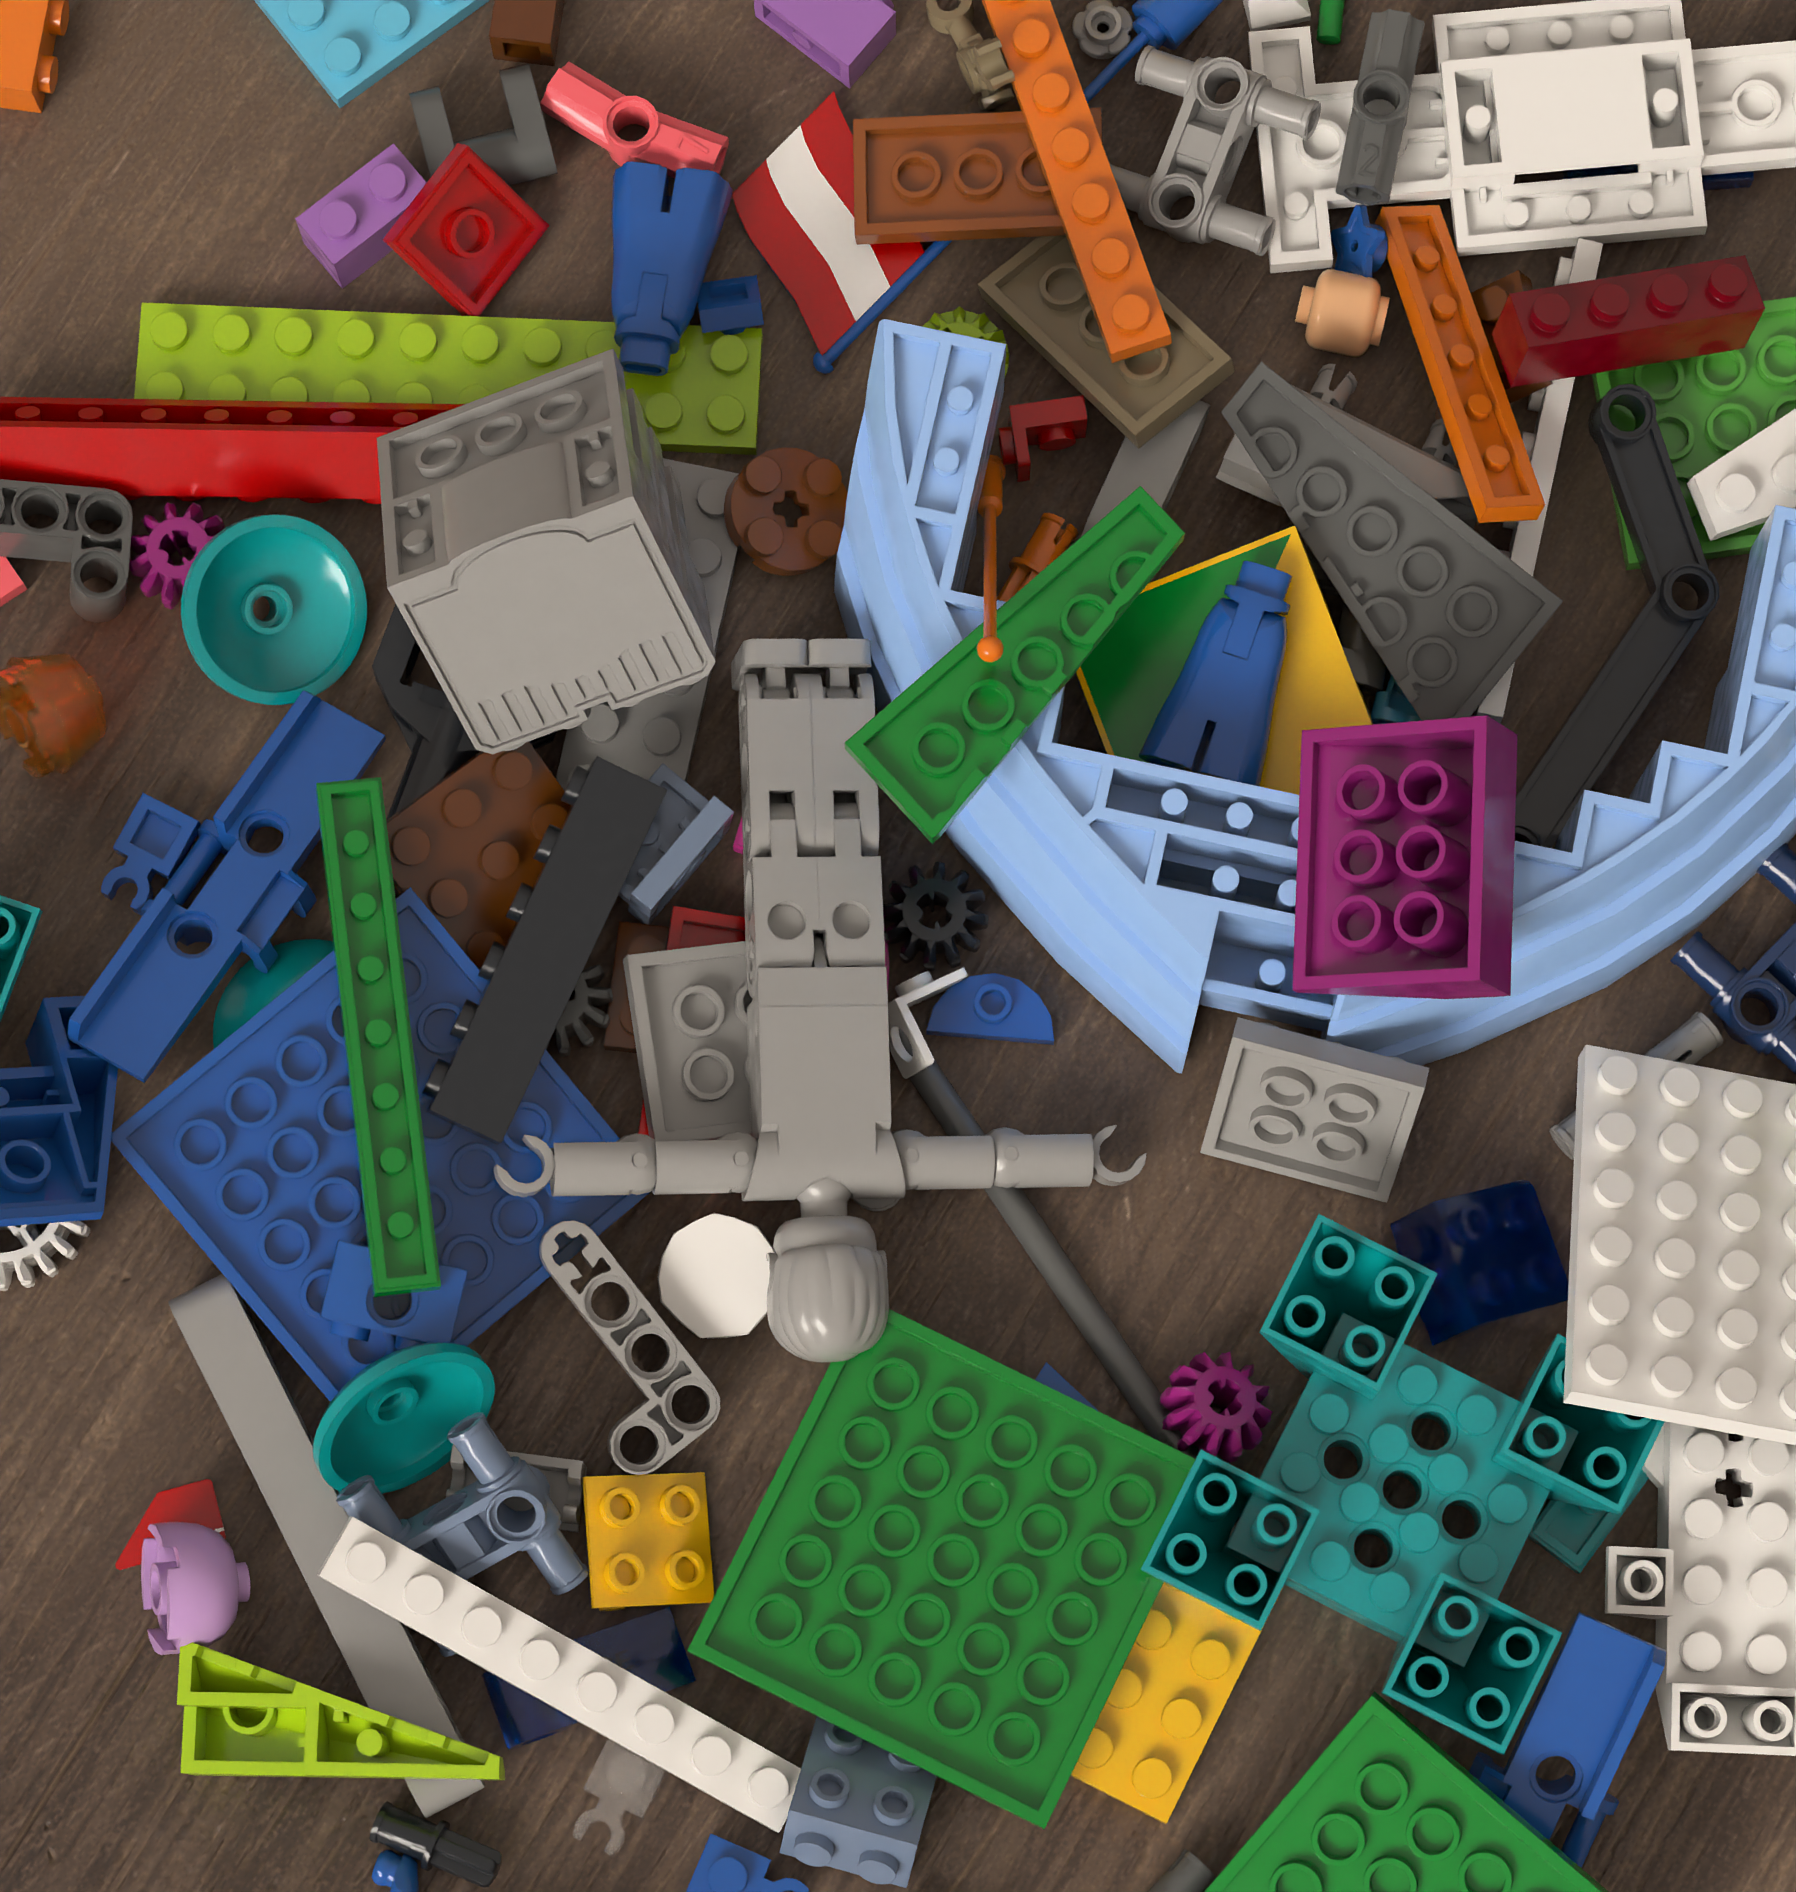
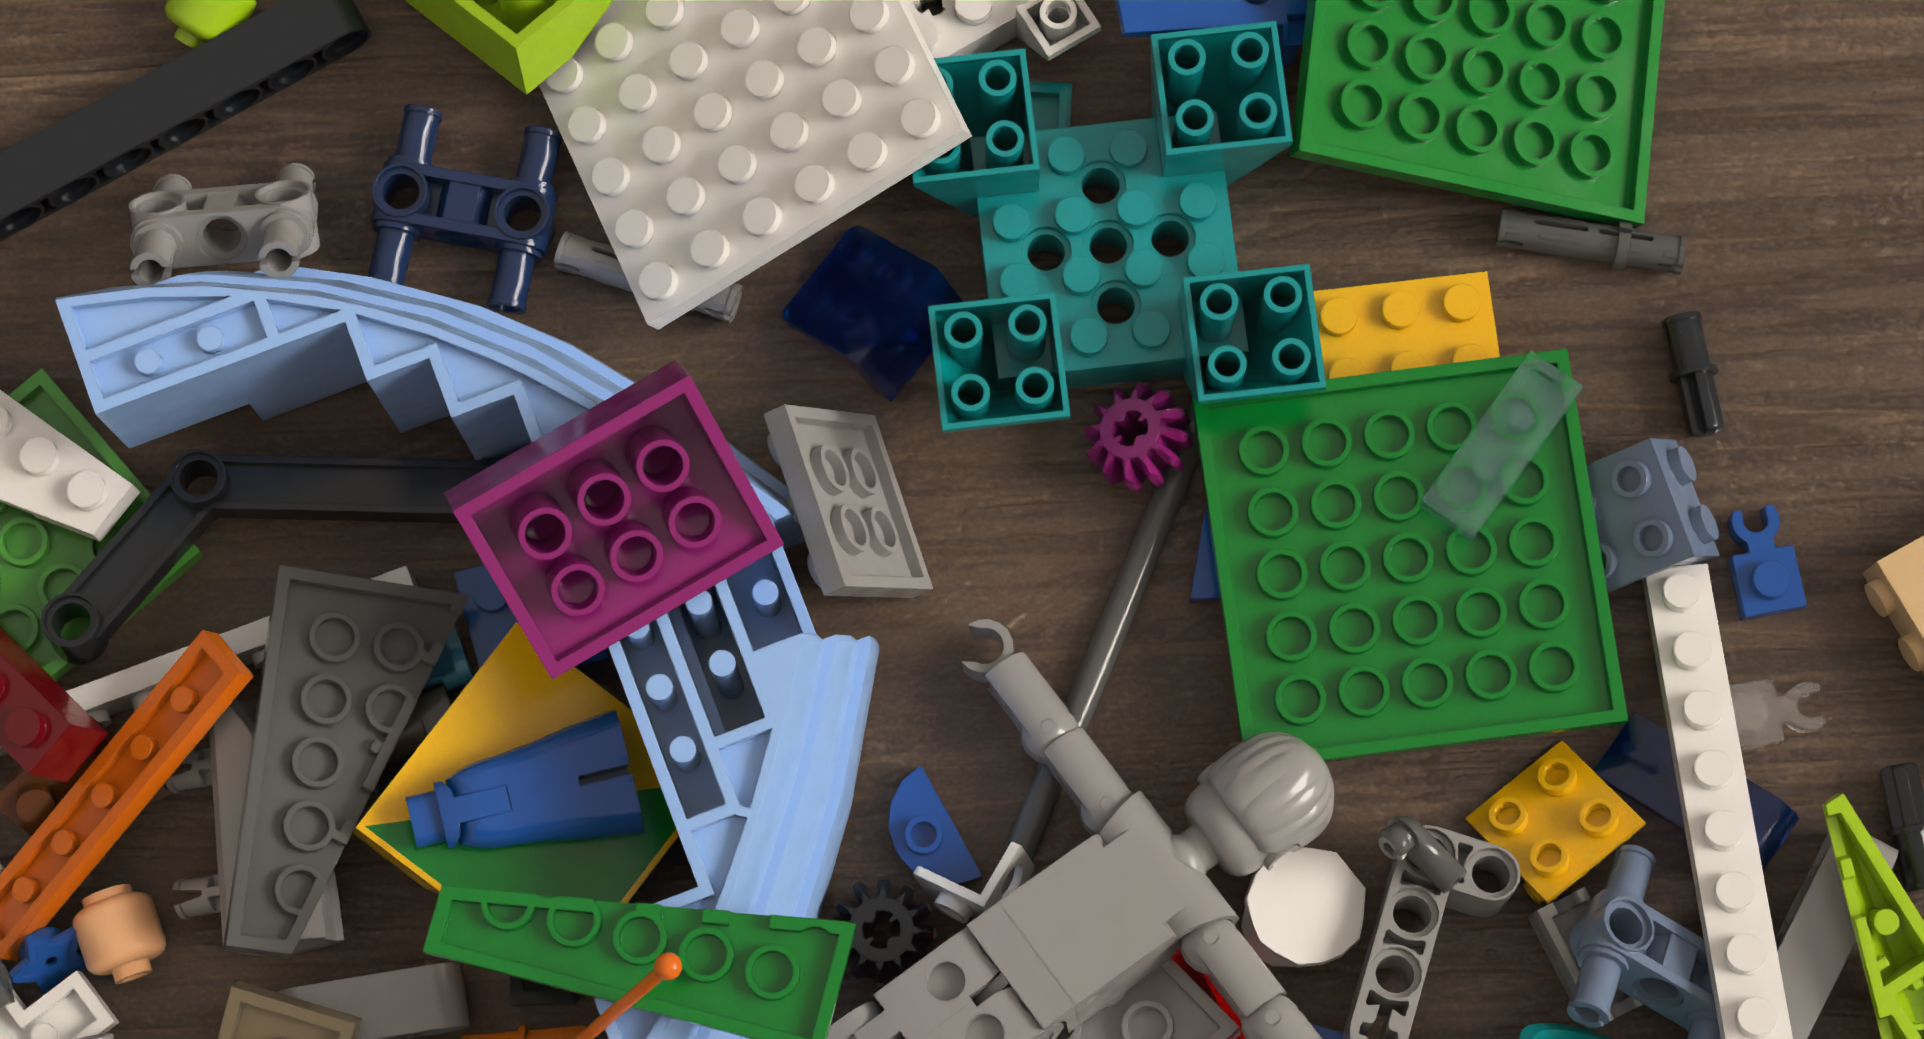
camera: 125 degrees left, 0 degrees up
(695, 1396) = (1410, 839): none -> dark grey arm
(995, 1706) = (1501, 446): none -> clear light blue tile

